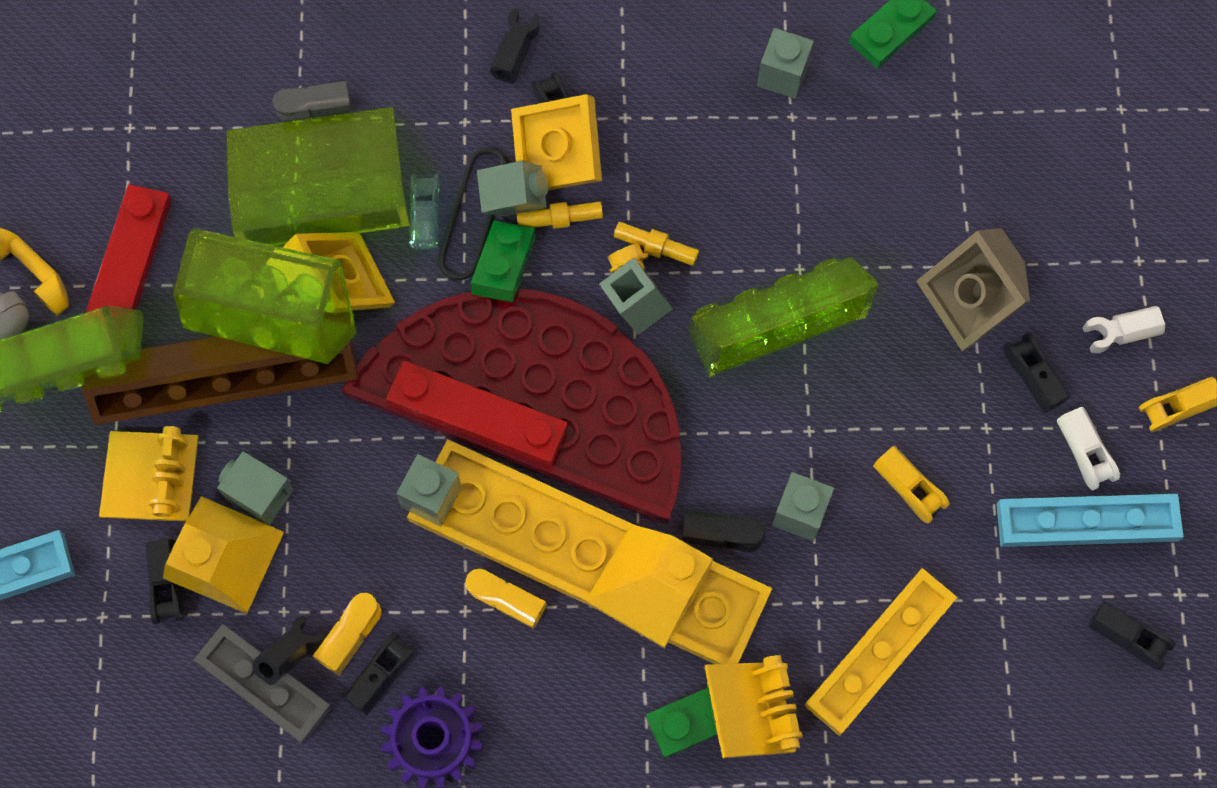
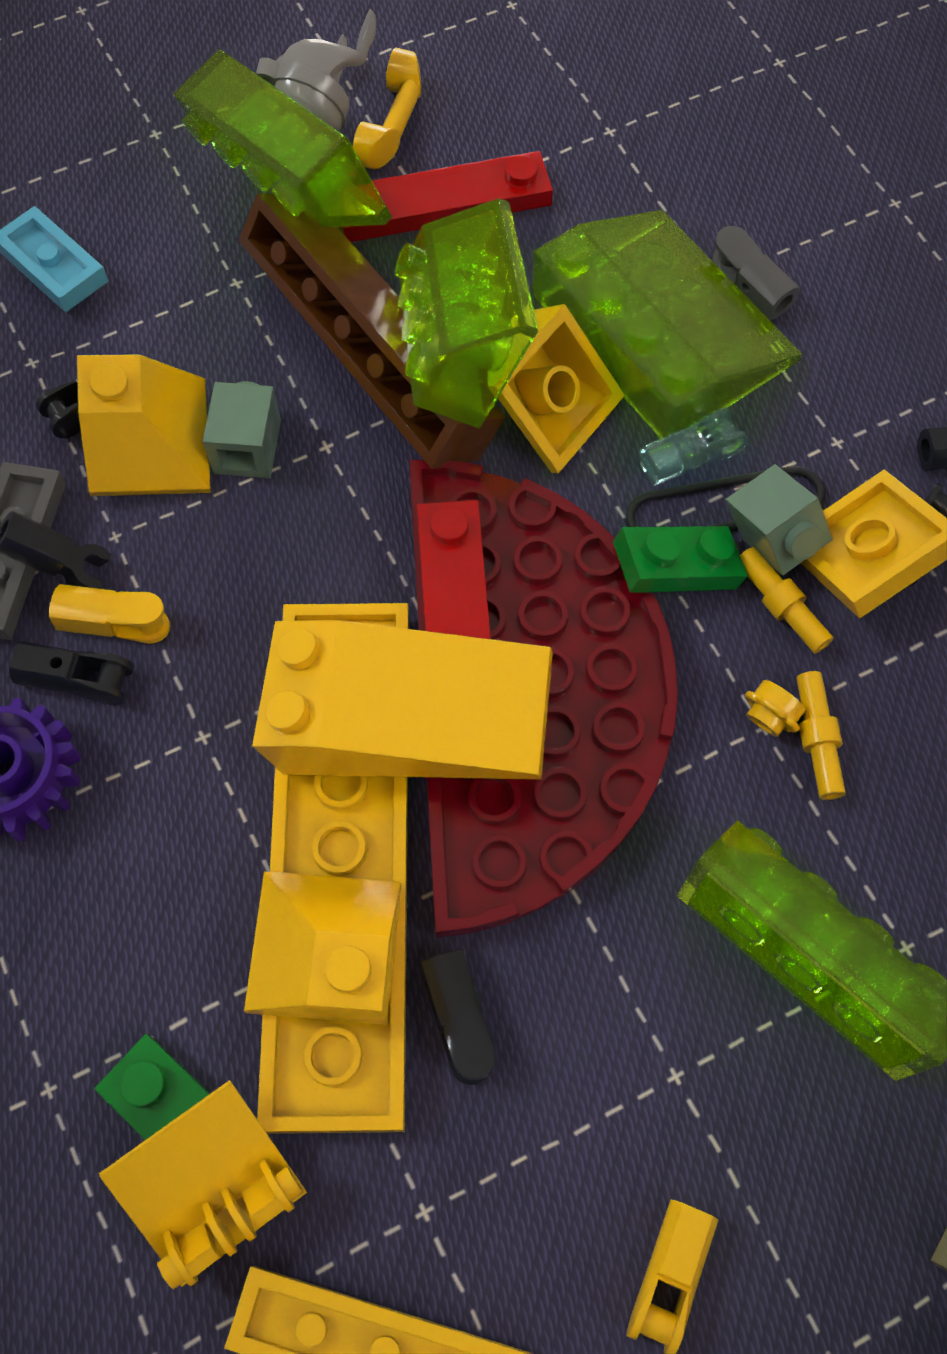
camera: 65 degrees right, 5 degrees down
(149, 475) = (214, 325): yellow hinge -> none
(429, 490) = (315, 589): sand green brick -> none
(505, 597) = (233, 775): yellow bar -> none
(529, 465) = (401, 703): none -> yellow slope
(635, 296) = (726, 736): sand green brick -> none
(802, 506) = (549, 1117): sand green brick -> none

